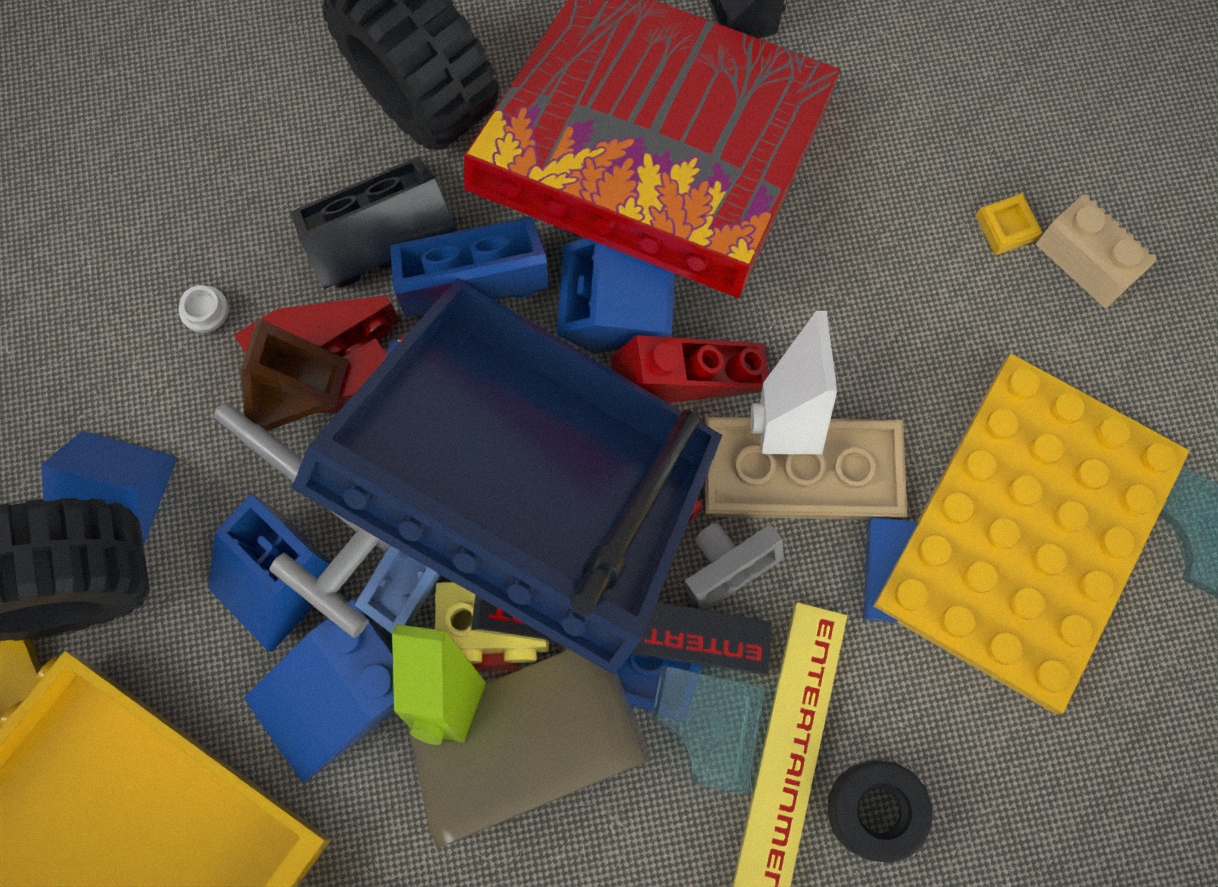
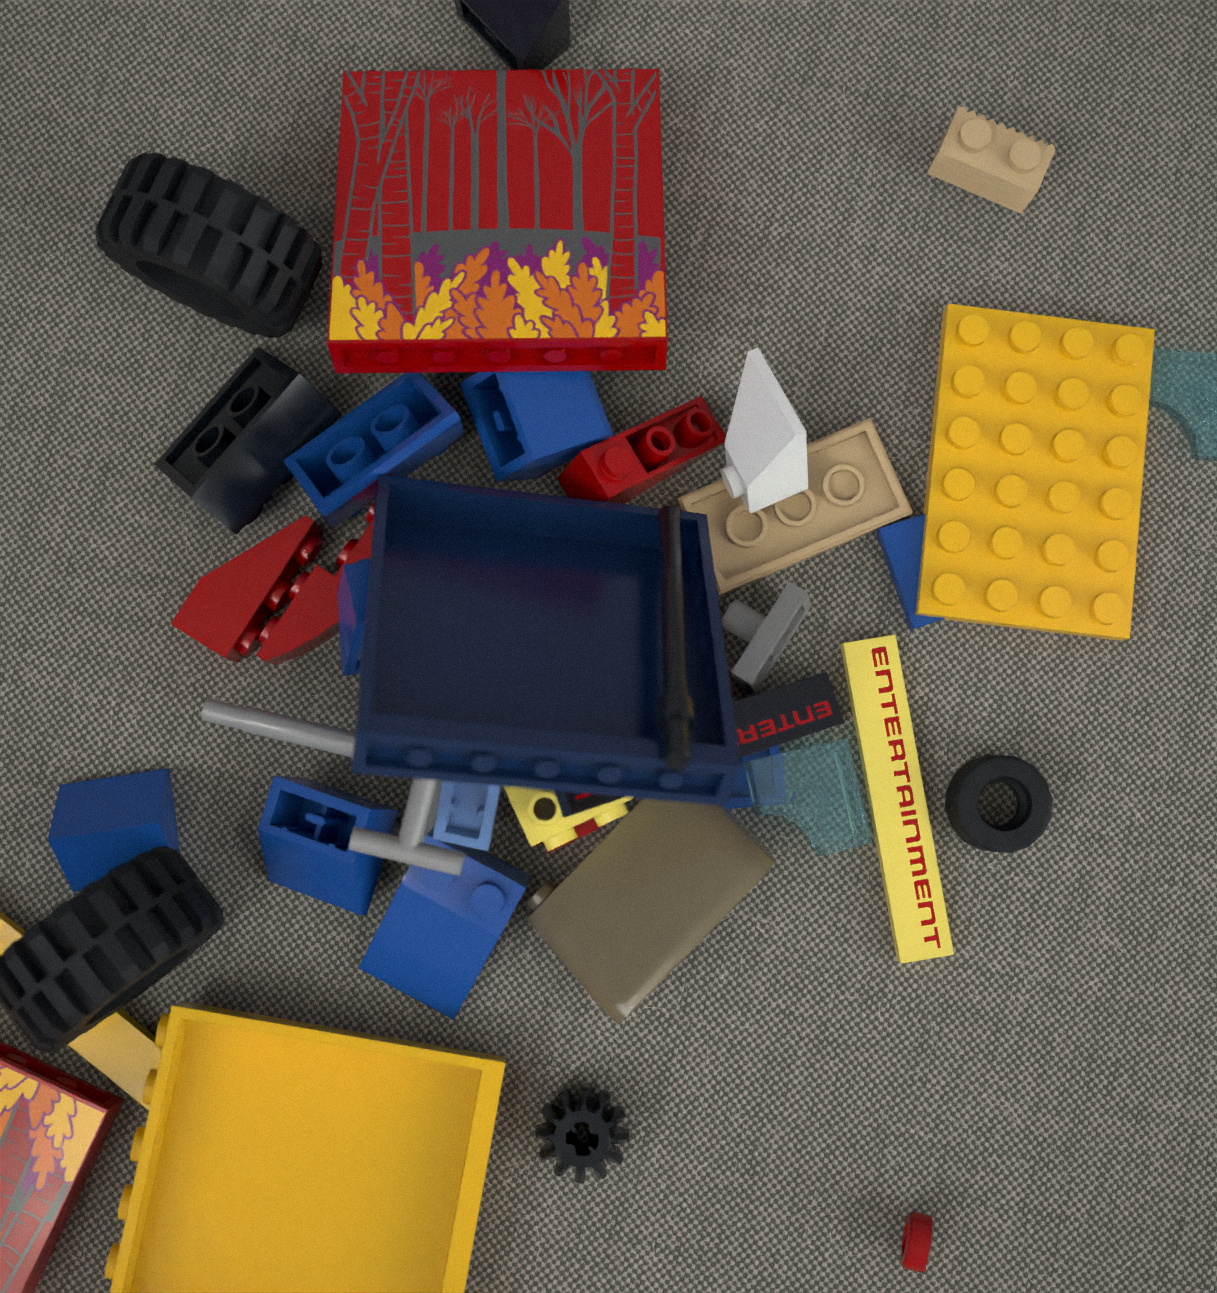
camera: 30 degrees left, 10 degrees up
(203, 308) = (118, 607): white plate -> none
(288, 377) = (255, 646): reddish brown slope -> none
(433, 684) = (546, 880): lime slope -> none
(1009, 224) = (893, 163): yellow tile -> none

